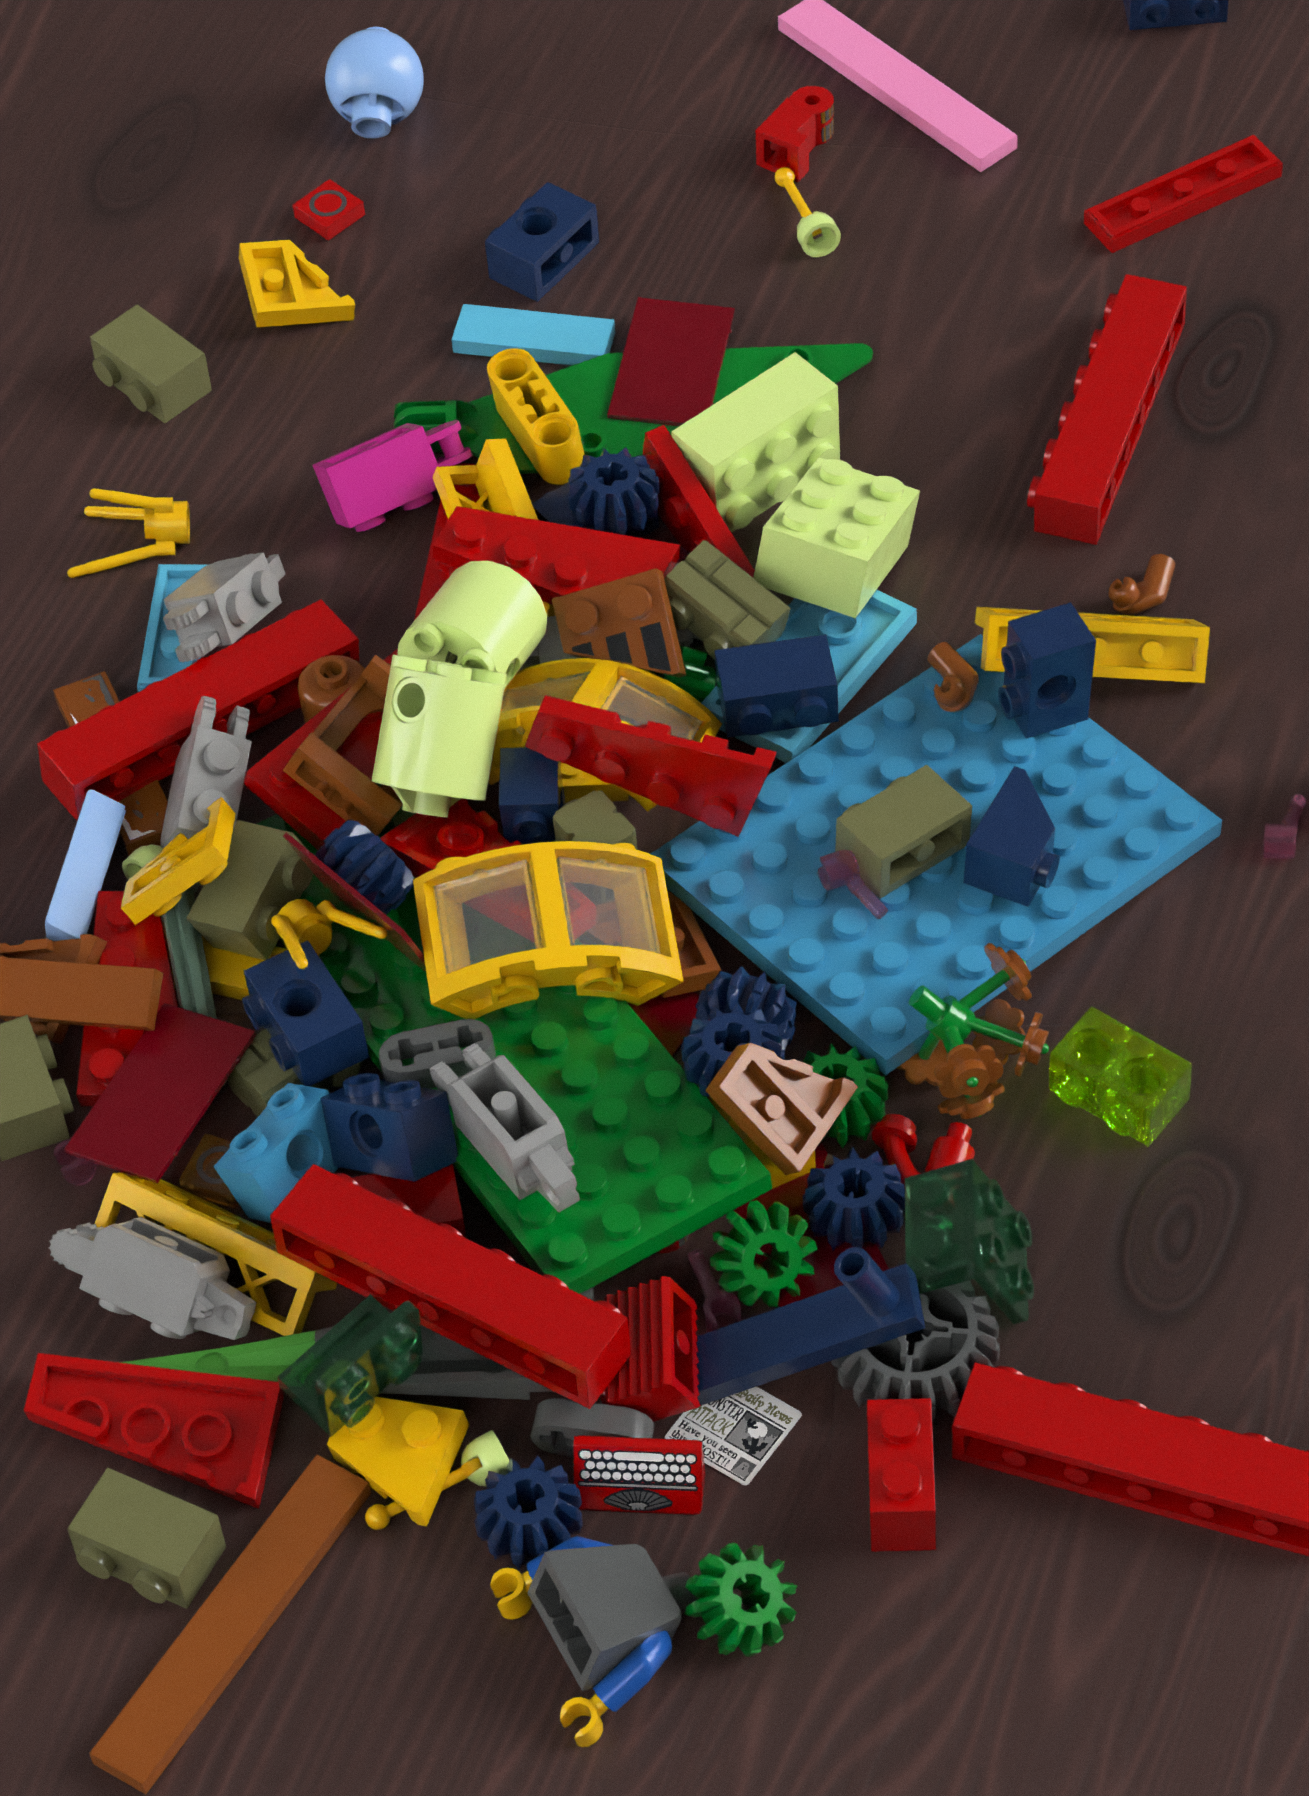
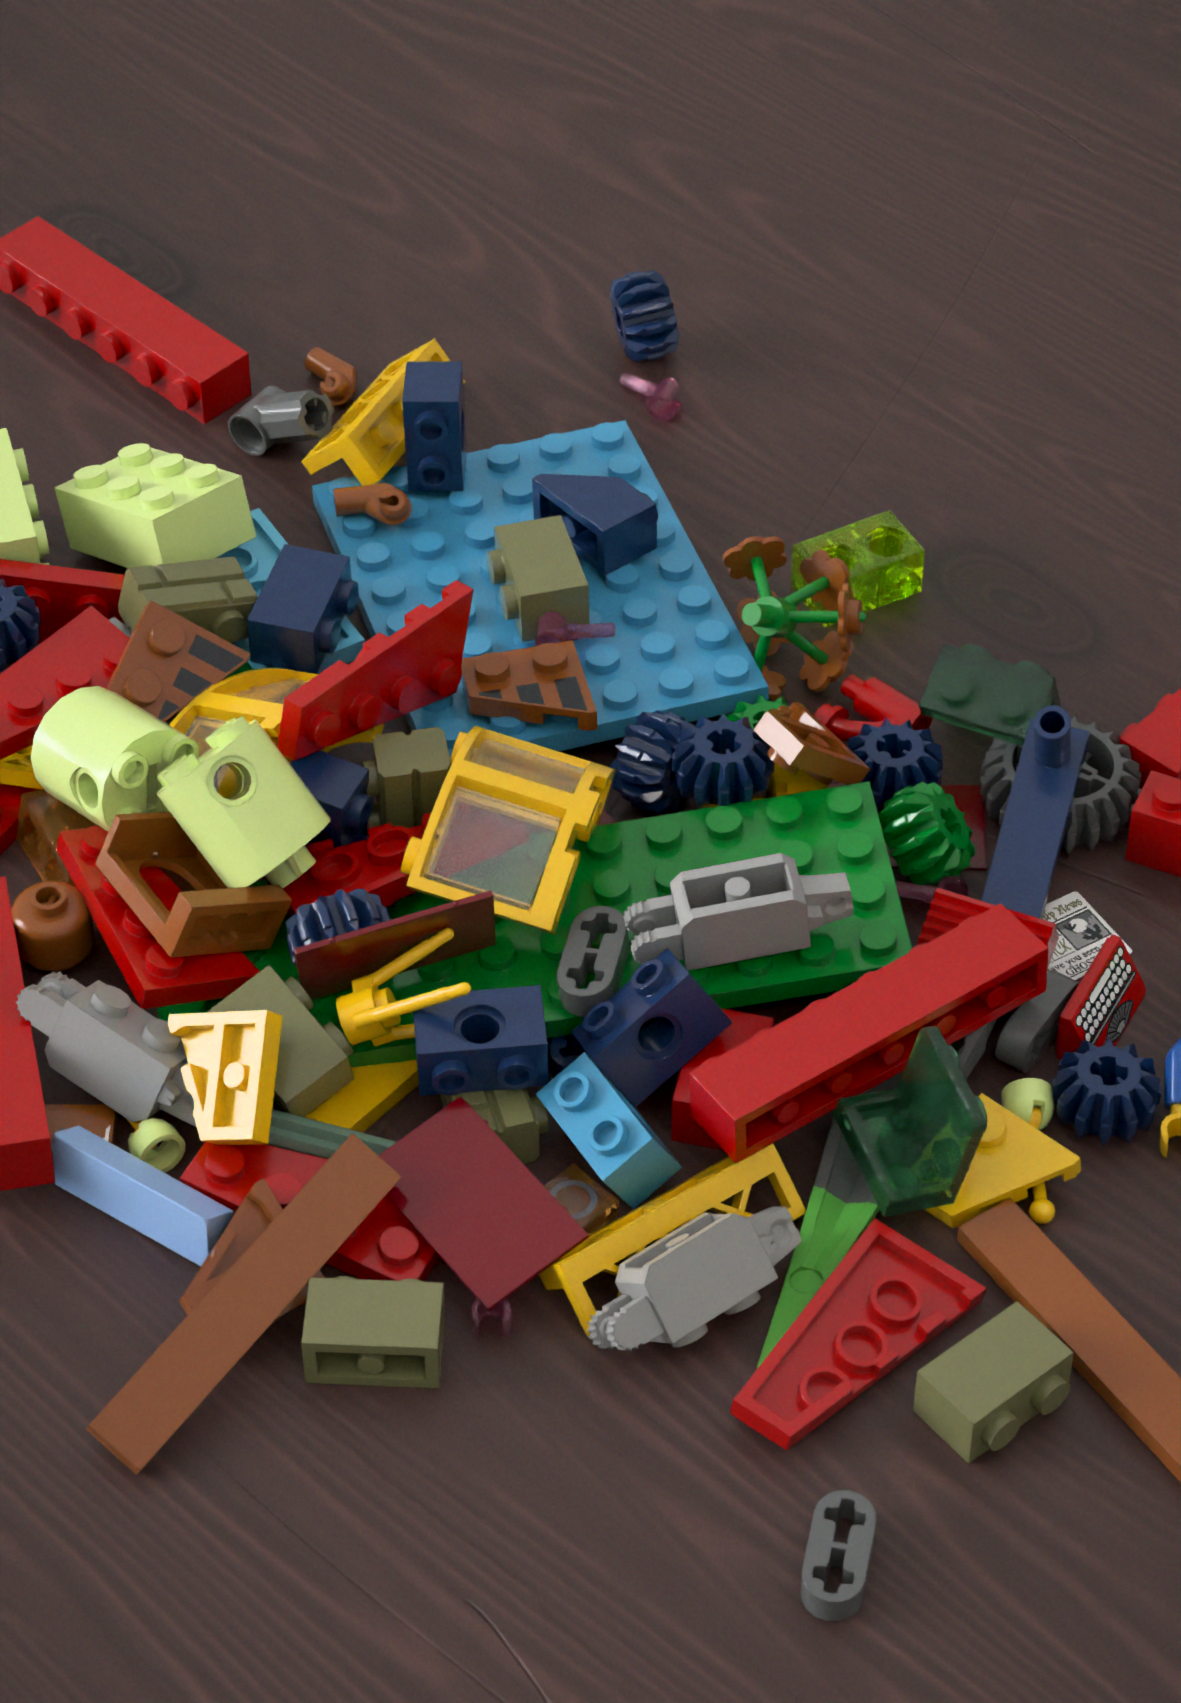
camera: 70 degrees left, 5 degrees down
(766, 882) = (530, 684): none -> dark orange wing
(1040, 571) = (280, 418): none -> dark grey piece

